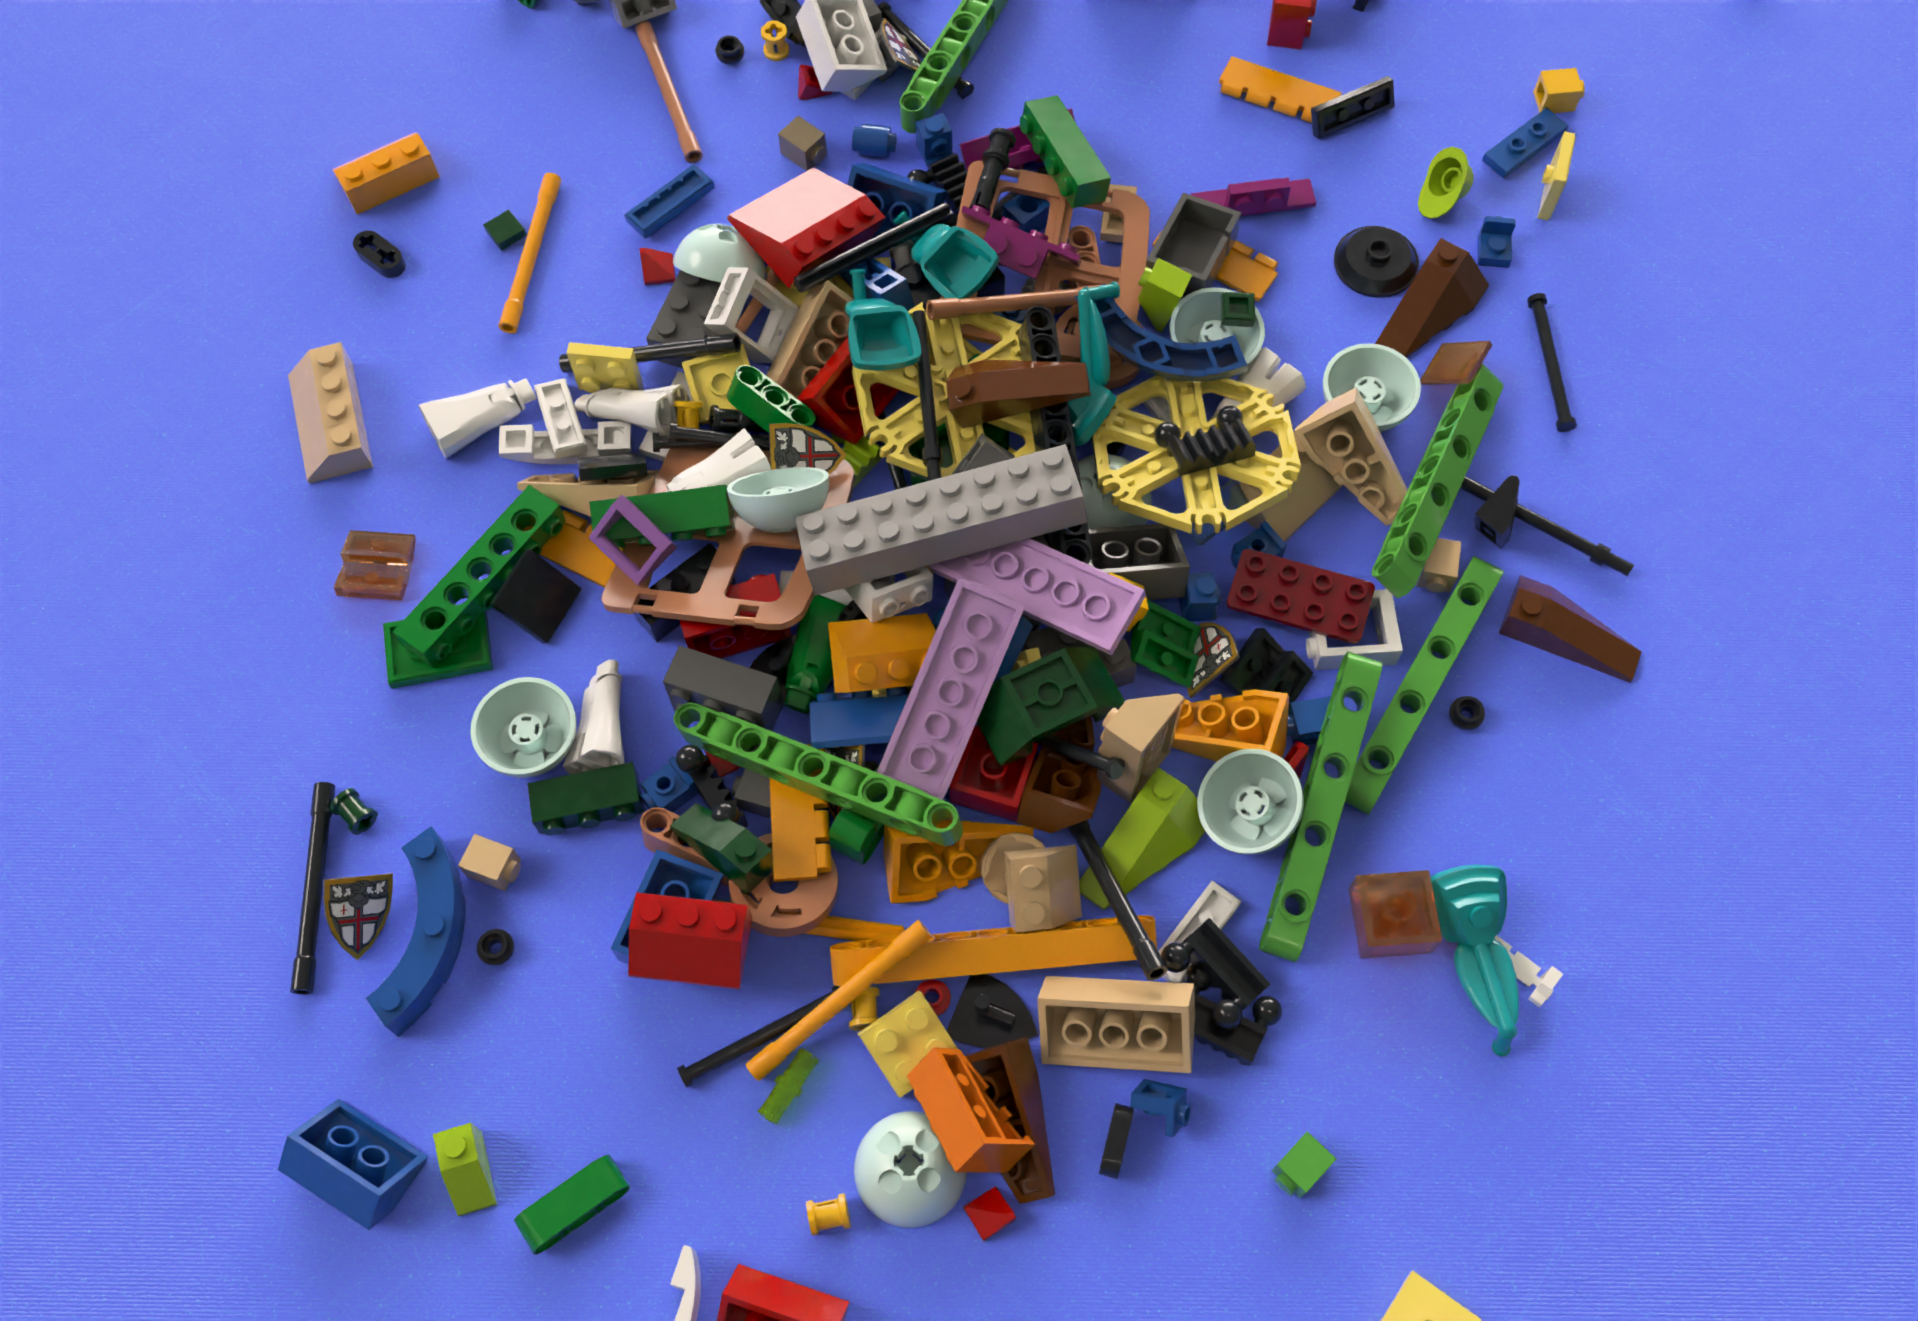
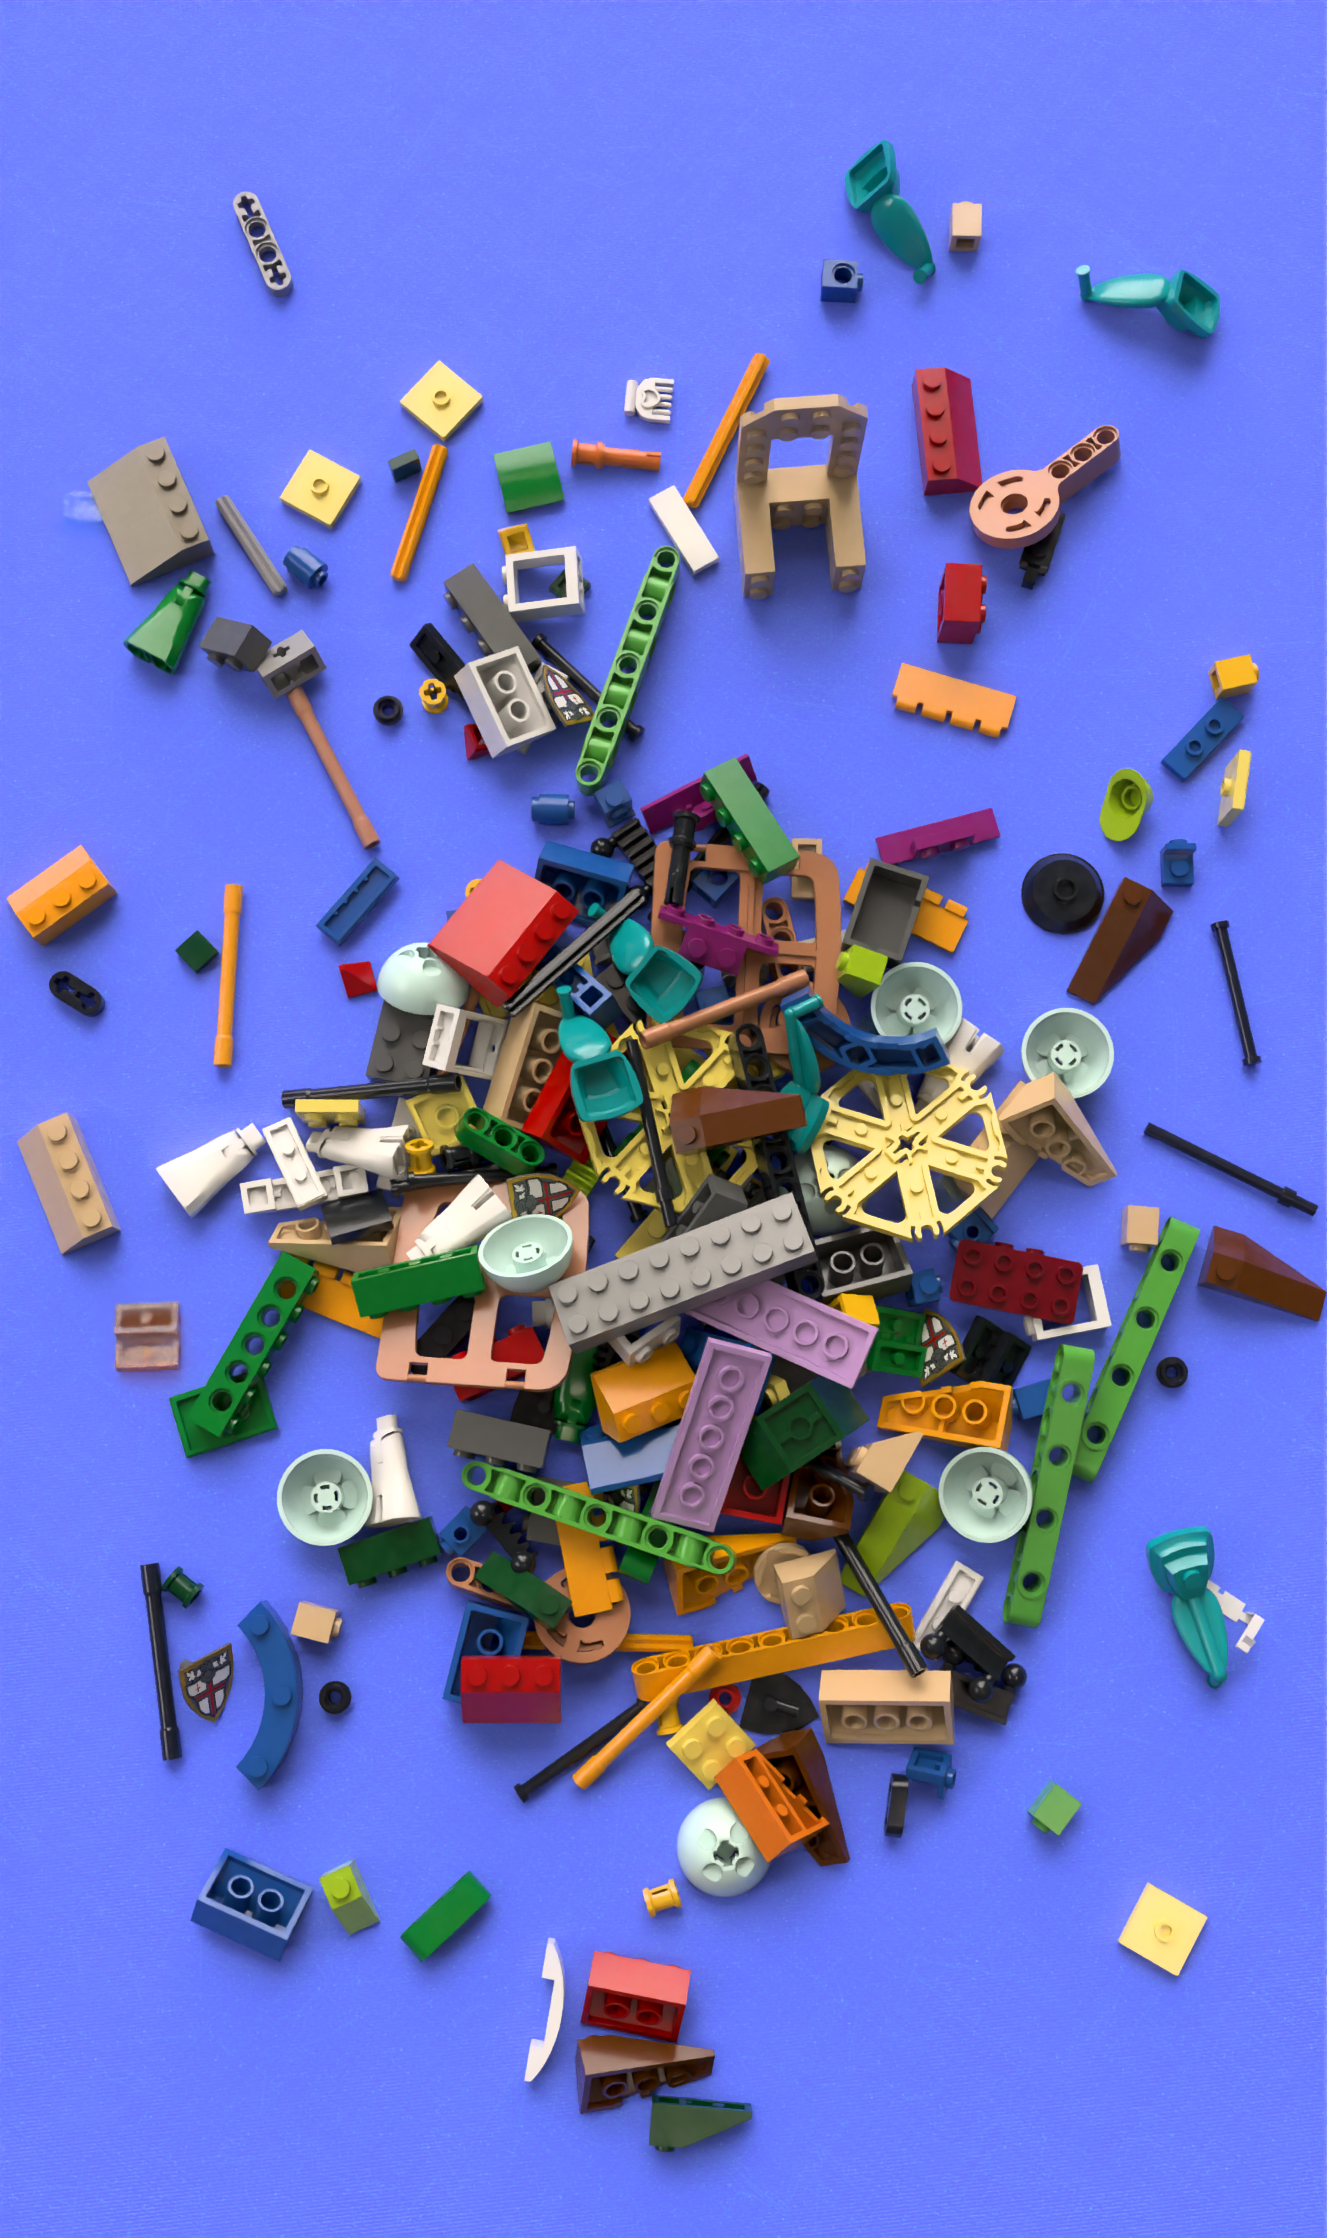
camera: 10 degrees left, 15 degrees up
(535, 596) = (308, 1359): black tile -> none
(663, 544) = (406, 1304): medium lavender tile -> none
(788, 1086) = (611, 1791): clear neon green pin -> none
(802, 143) = (482, 821): dark tan brick -> none
(989, 1213) = (796, 1877): red slope -> none
(1211, 448) = (920, 1150): black gear -> none
(1237, 309) = (934, 986): dark green tile -> none
(1297, 757) = (1021, 1441): red slope -> none
(1353, 107) = (1029, 719): black tile -> none
(1394, 914) = (1118, 1579): clear orange brick -> none
(1436, 483) = (1135, 1143): bright green beam -> none
(1456, 363) = (1145, 1012): clear orange piece -> none
(1497, 514) = (1192, 1176): black tile -> none

